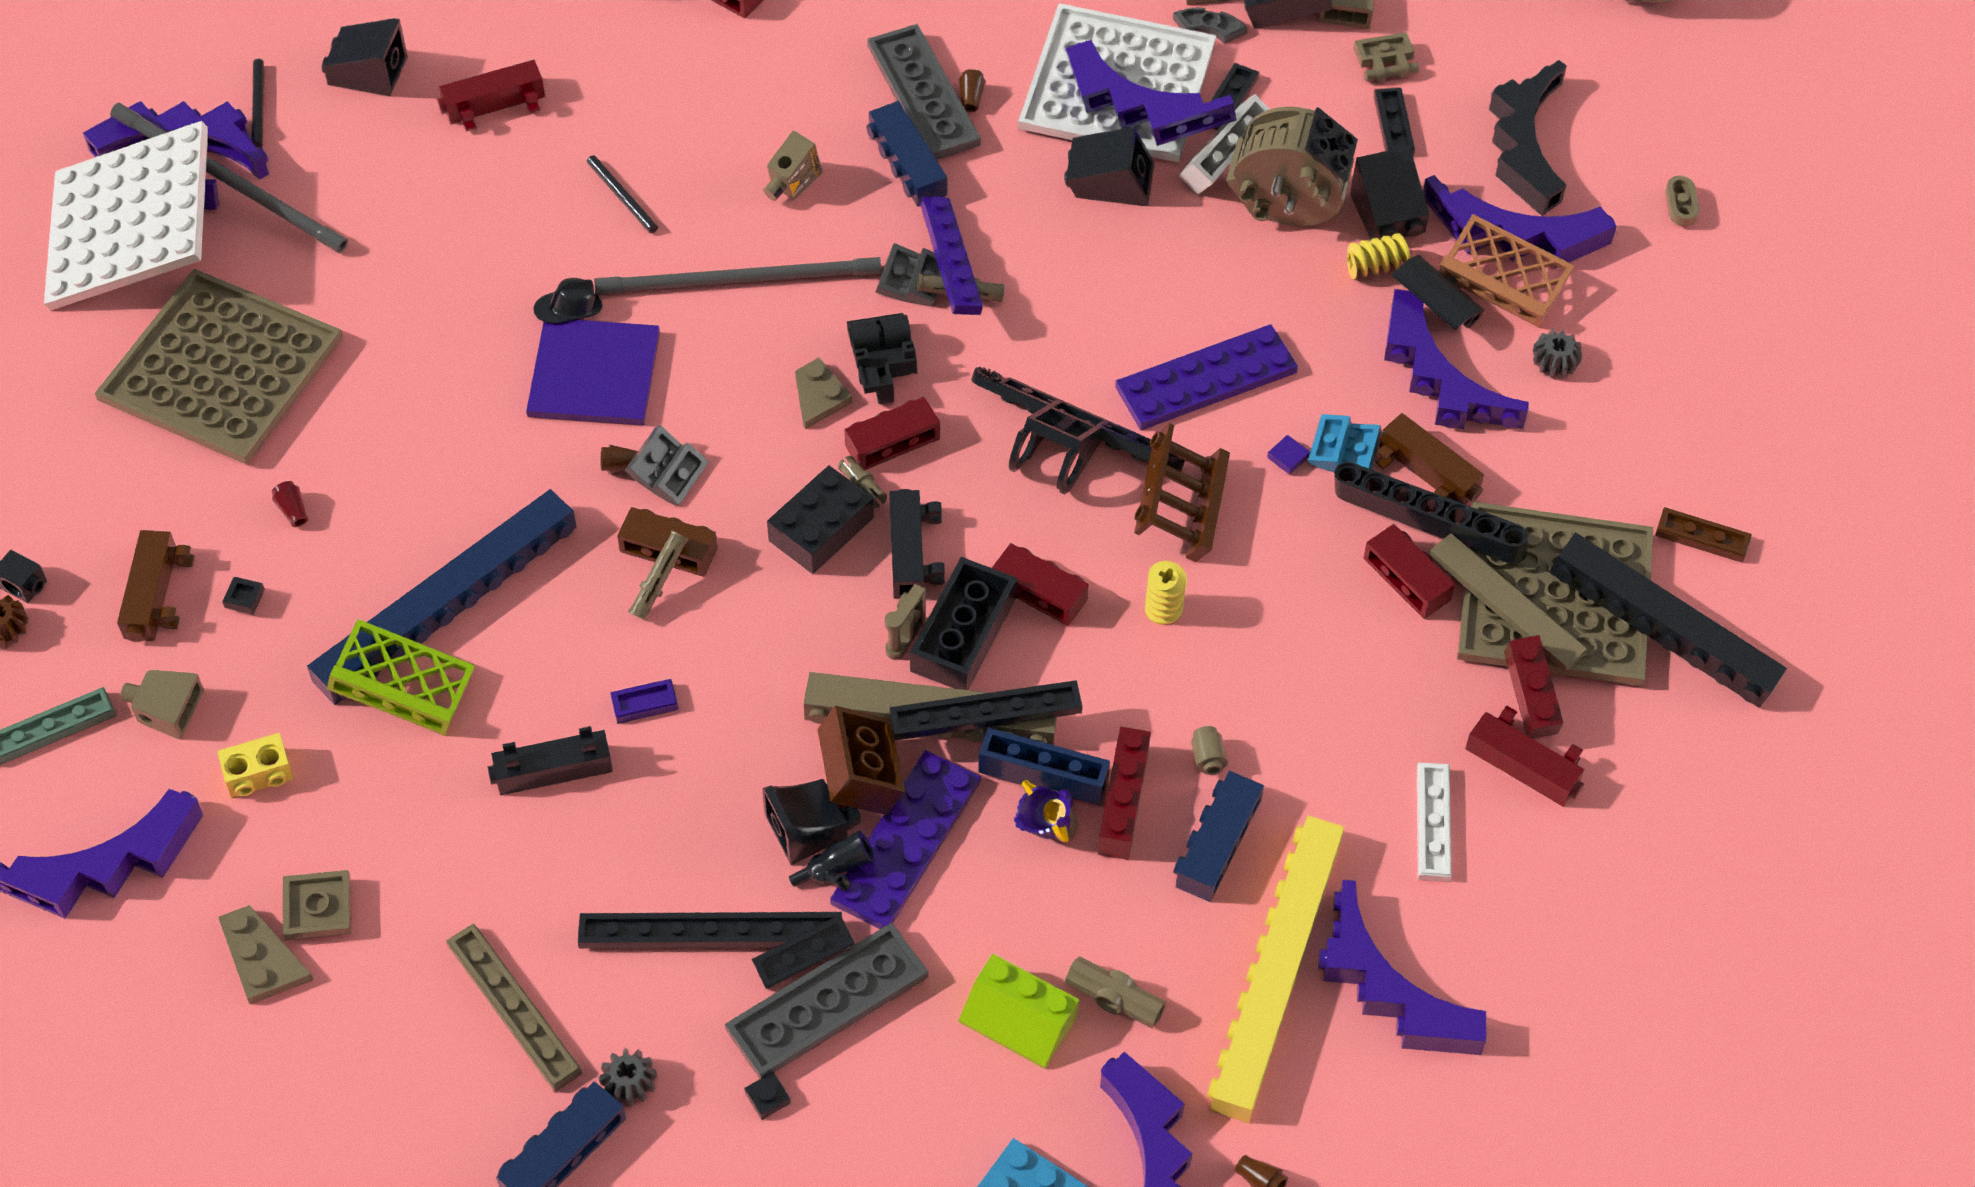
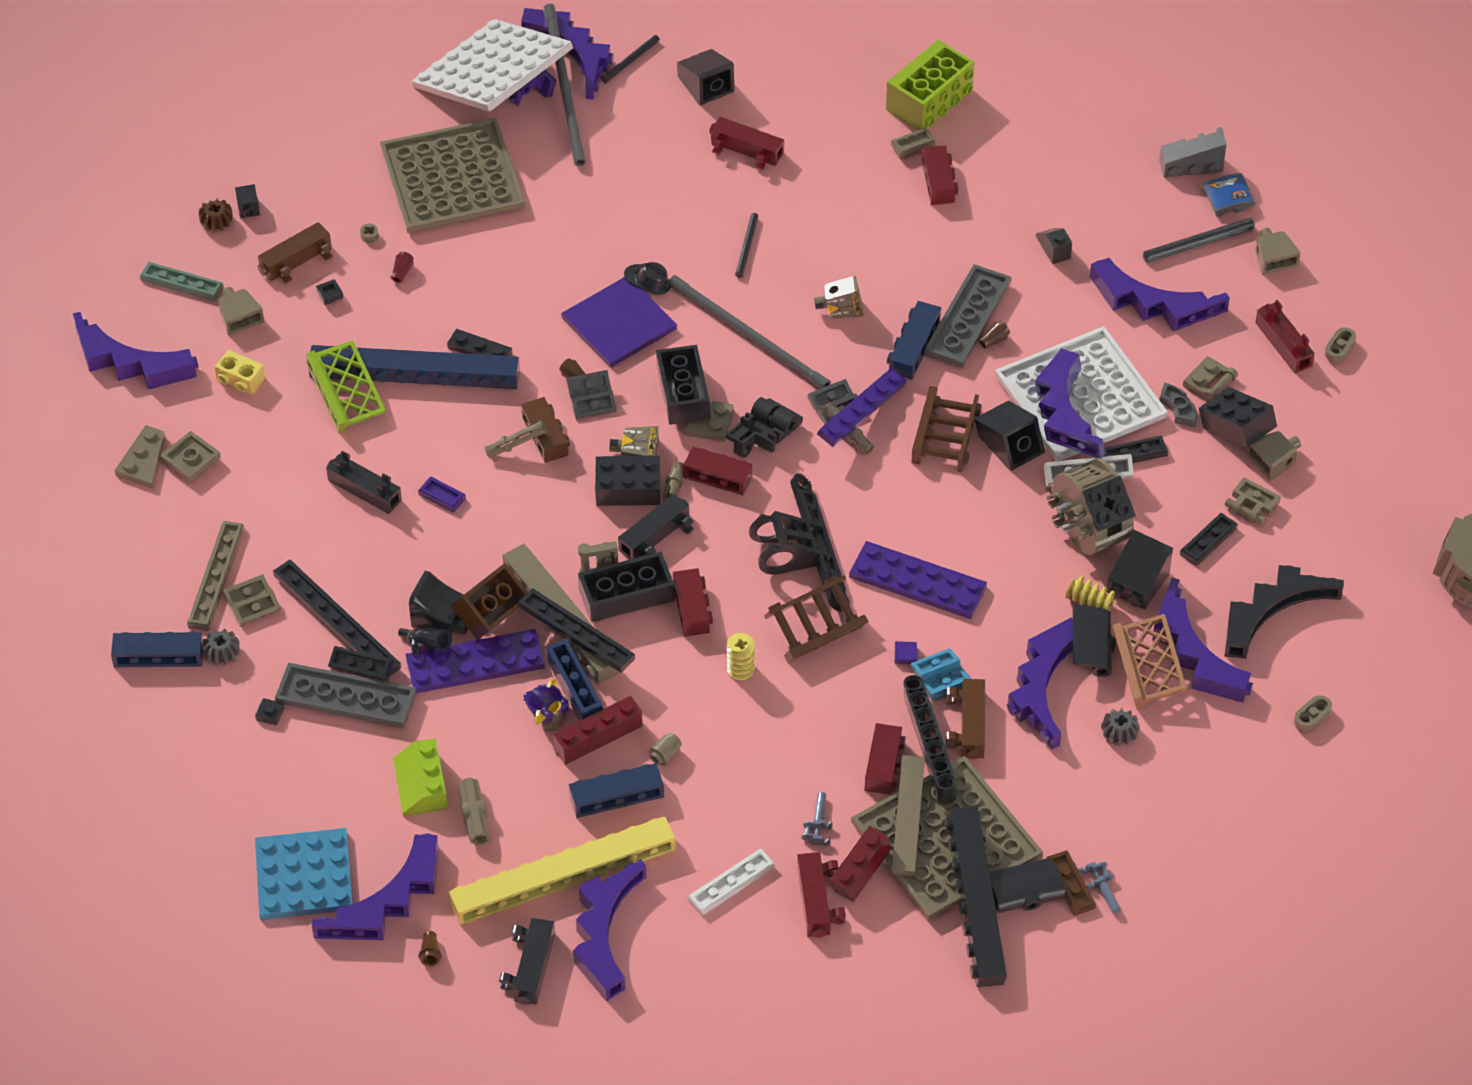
camera: 50 degrees right, 5 degrees down
(210, 503) = (368, 238): none -> dark tan bush
(480, 517) = (472, 344): none -> black plate
(590, 997) = (251, 599): none -> dark tan slope
(754, 376) = (683, 384): none -> black brick
(781, 475) = (637, 442): none -> dark tan torso
(1033, 233) = (930, 417): none -> reddish brown fence
(1375, 1086) = (533, 962): none -> black brick
(1430, 687) = (818, 823): none -> sand blue piece
(1685, 564) = (1026, 885): none -> black panel
(1732, 511) = (1101, 883): none -> sand blue piece

